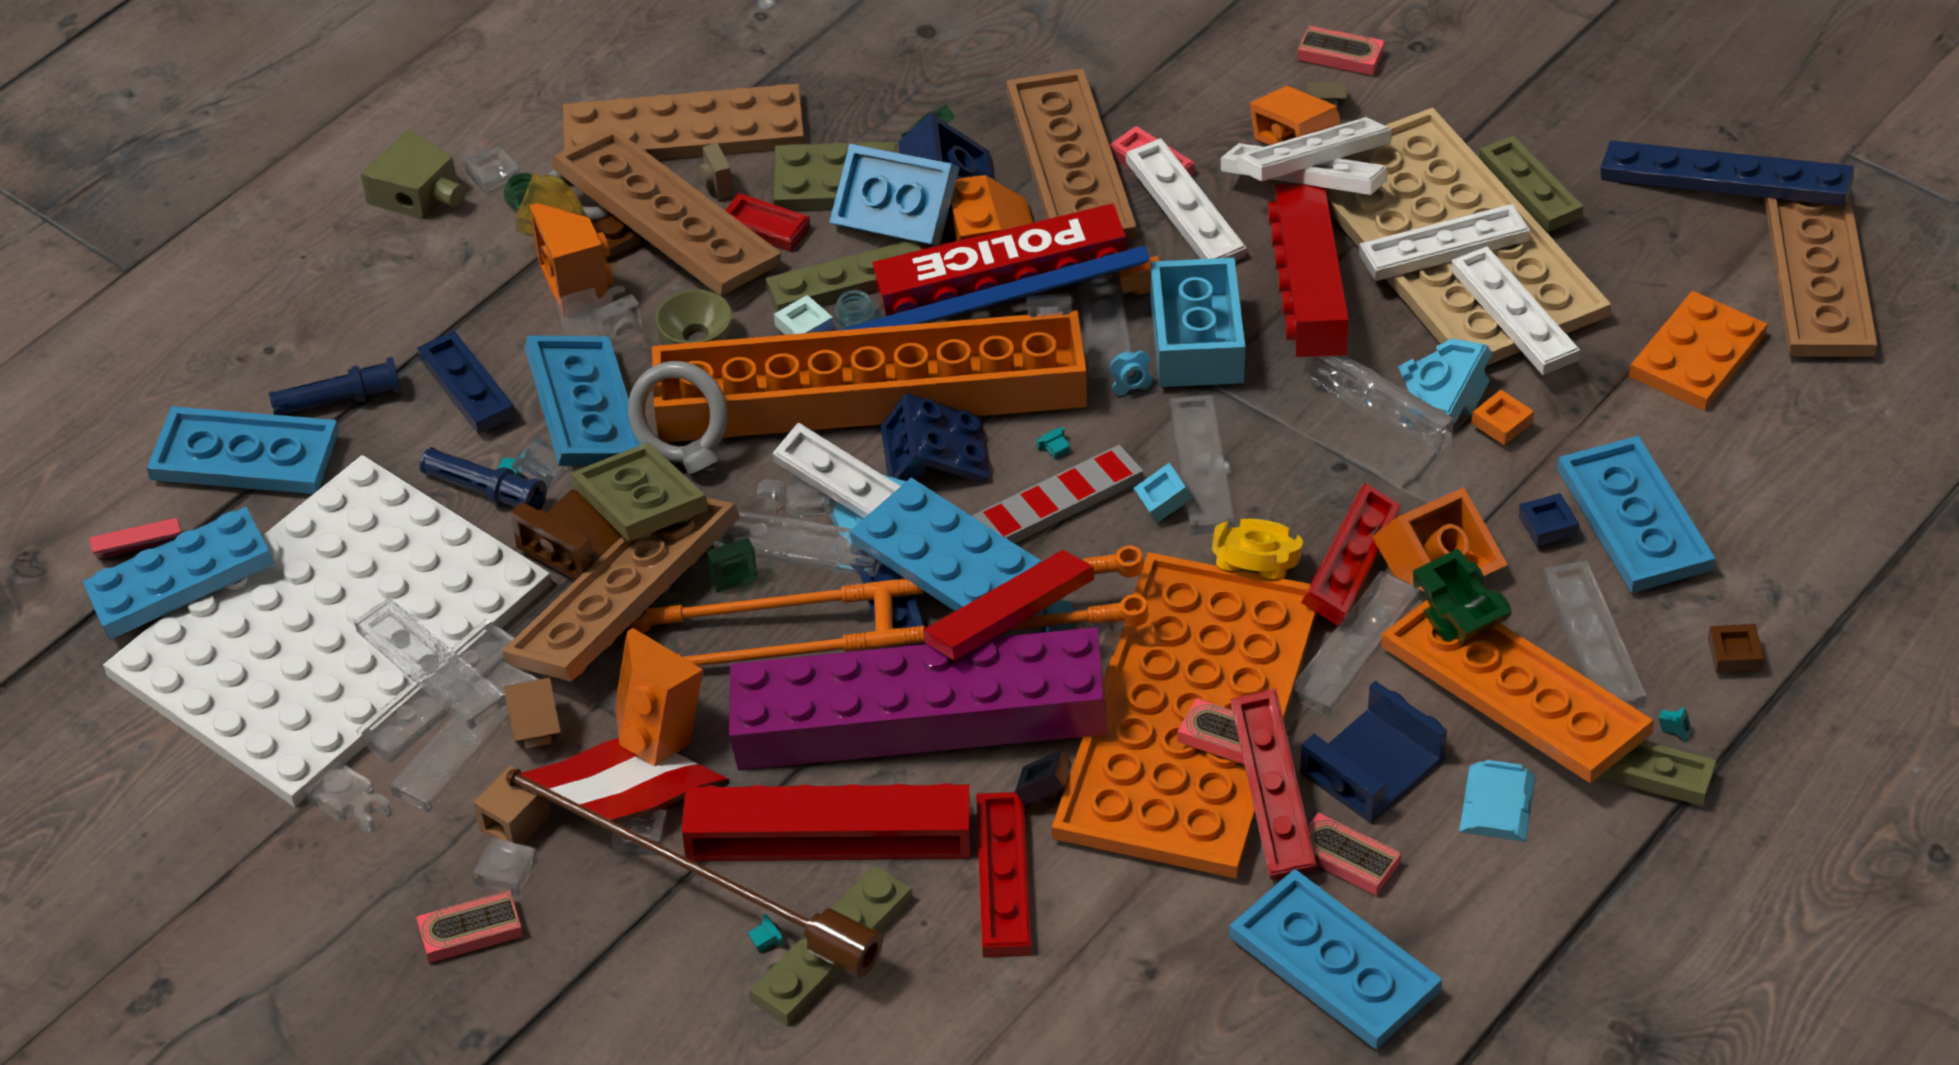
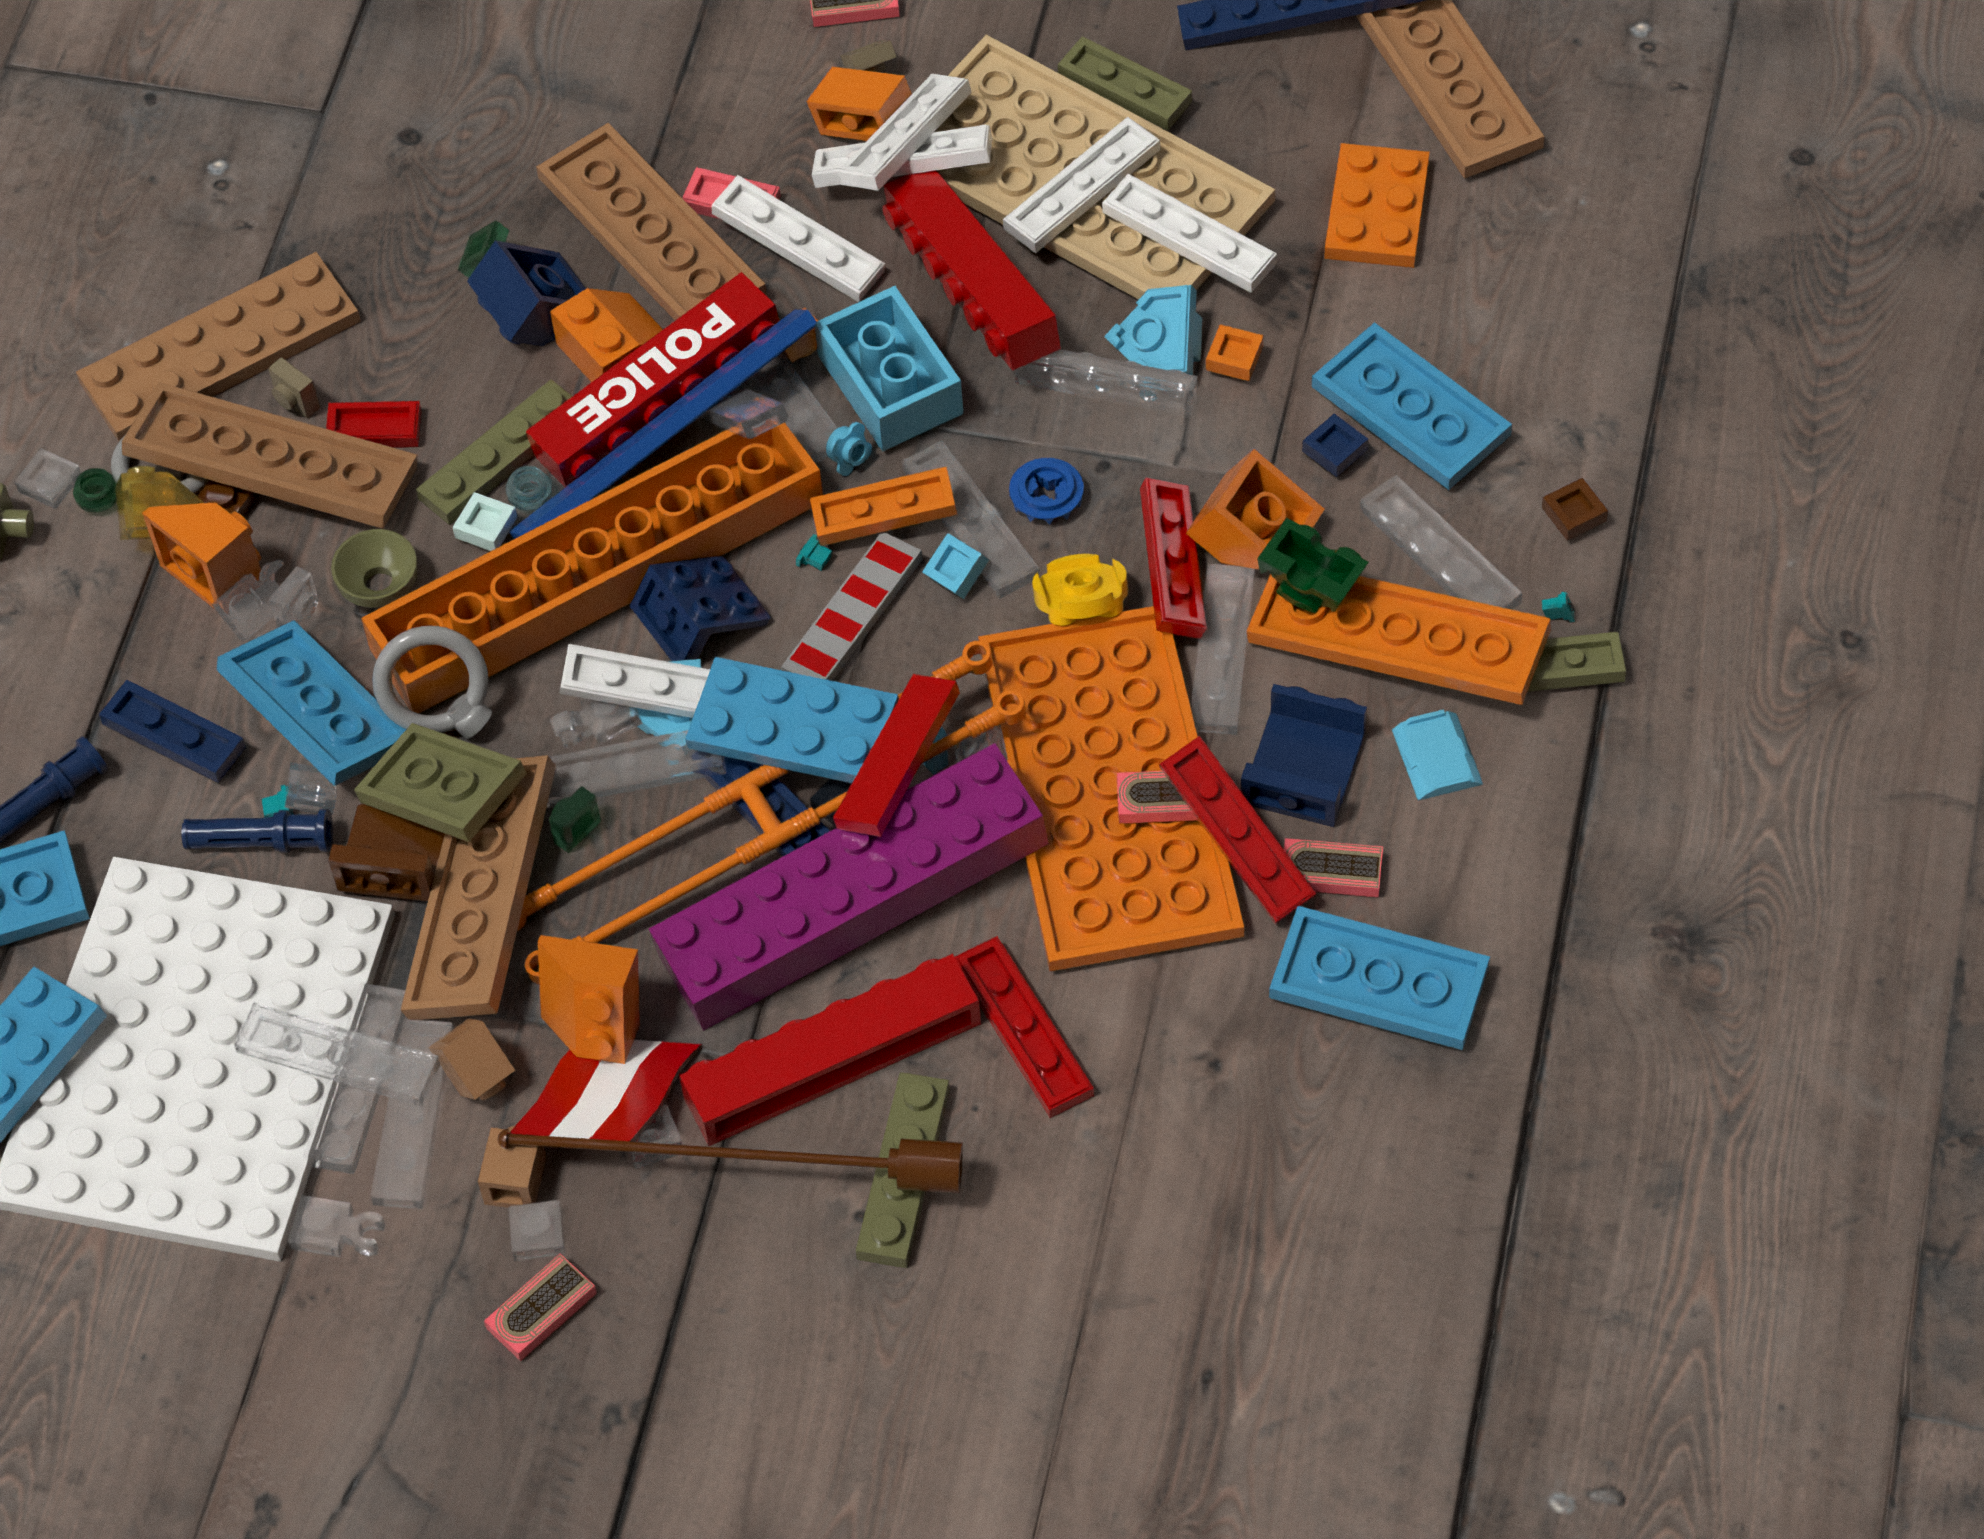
camera: 25 degrees left, 10 degrees up
(766, 935) = (834, 1187): teal piece -> none
(810, 173) = (416, 343): olive plate -> none
(894, 195) = (505, 346): dark azure plate -> none
(1043, 778) = (1012, 914): black plate -> none
(1129, 423) = (883, 506): none -> orange plate
(1288, 453) = (1049, 474): none -> blue gear

